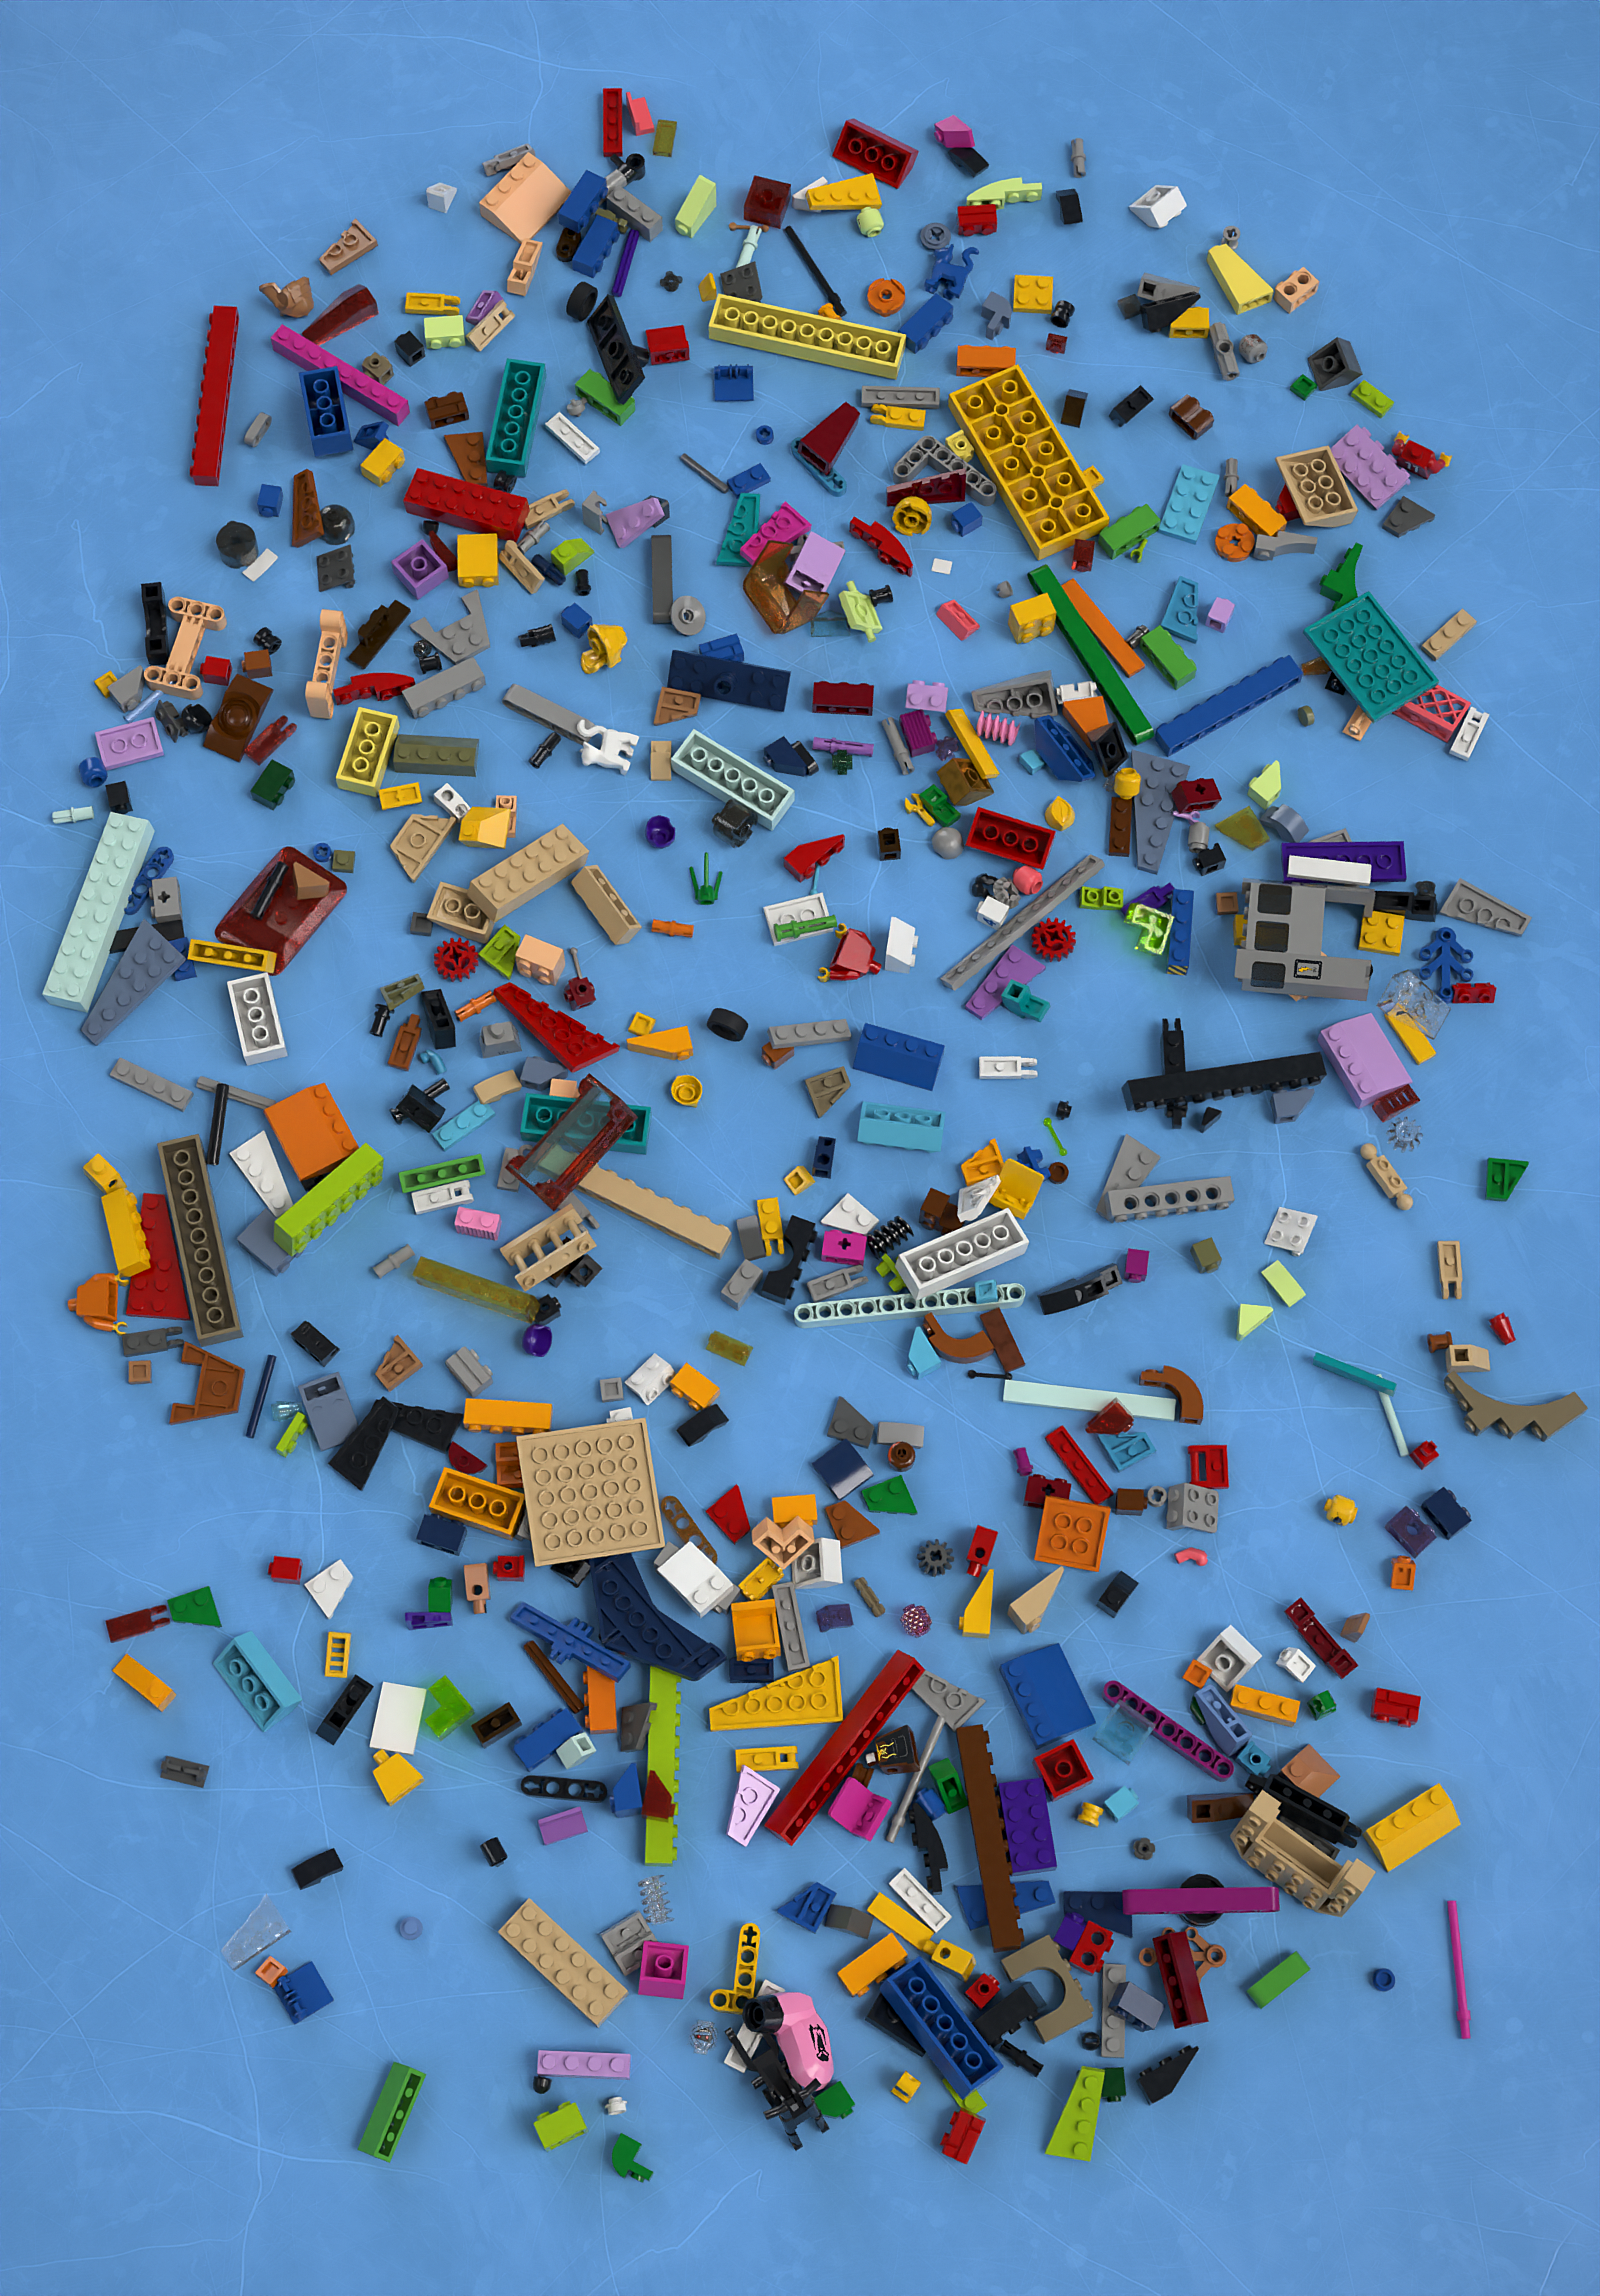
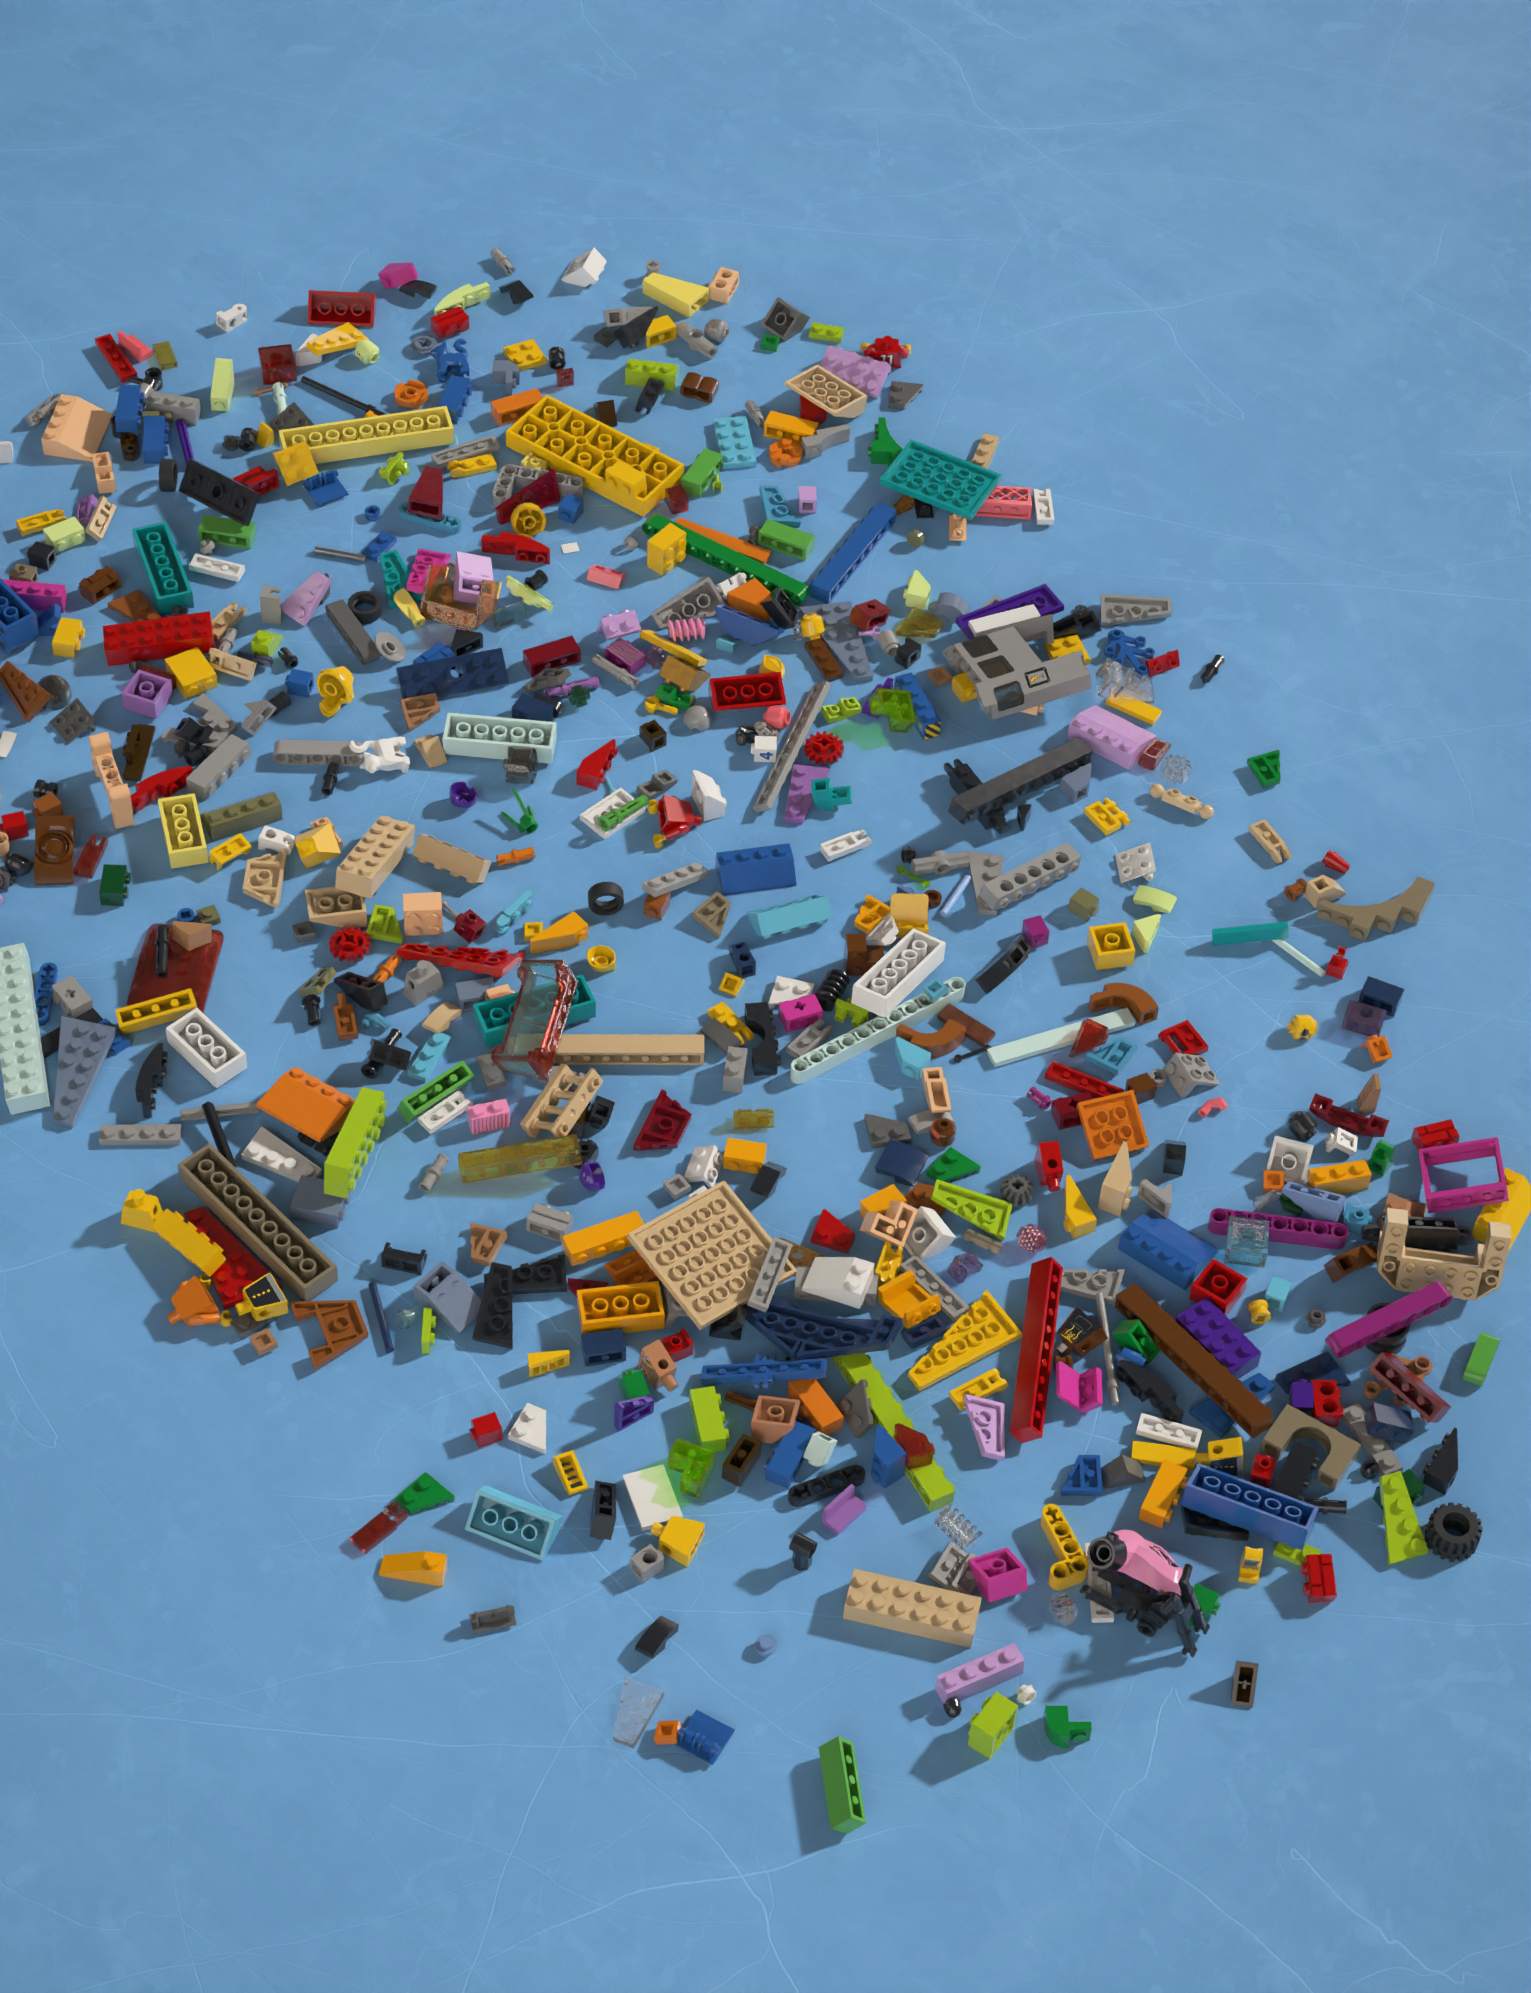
camera: 30 degrees left, 20 degrees down
(157, 1330) = (263, 1299): none -> torso
(192, 1023) = (149, 1078): none -> black slope
(342, 1787) = (643, 1570): none -> light grey brick
(377, 1523) = (547, 1361): none -> yellow slope
(439, 636) = (192, 731): none -> black slope
(494, 1663) = (708, 1418): none -> lime brick
(511, 646) = (260, 713): none -> light grey slope
(551, 1695) = (773, 1418): none -> nougat slope
(631, 1542) = (769, 1274): none -> light grey plate
(633, 996) = (514, 912): none -> medium azure hinge
(639, 1313) = (663, 1125): none -> dark red wing
(689, 285) = (248, 439): none -> black wheel
(690, 566) = (365, 597): none -> black tyre
(713, 343) = (295, 463): none -> yellow brick
(733, 573) = (409, 607): none -> light yellow piece
(758, 117) = (232, 318): none -> white leg
(764, 644) = (466, 642): none -> black slope
(816, 389) = (395, 468): none -> lime hips
(821, 727) = (547, 678): none -> dark grey wing
(822, 2208) = (1244, 1683): none -> dark brown slope
(860, 907) = (658, 785): none -> dark grey slope
(883, 1560) = (979, 1209): none -> lime wing
(922, 1406) = (936, 1090): none -> light nougat slope
(1033, 515) = (625, 479): none -> yellow brick
(1068, 1639) = (1156, 1198): none -> light grey slope
(1084, 1180) = (956, 894): none -> light blue bar
(1089, 1135) = (940, 863): none -> light grey piece
(1143, 2146) = (1457, 1518): none -> black tyre
(1152, 374) = (638, 372): none -> lime slope
(1176, 1691) = (1262, 1201): none -> clear pin
(1200, 1321) = (1111, 946): none -> yellow brick
(1267, 1626) = (1302, 1125): none -> black head
(1291, 1159) = (1103, 818): none -> yellow plate
(1376, 1800) = (1465, 1196): none -> dark pink window
(1523, 1025) = (1212, 668): none -> black axle

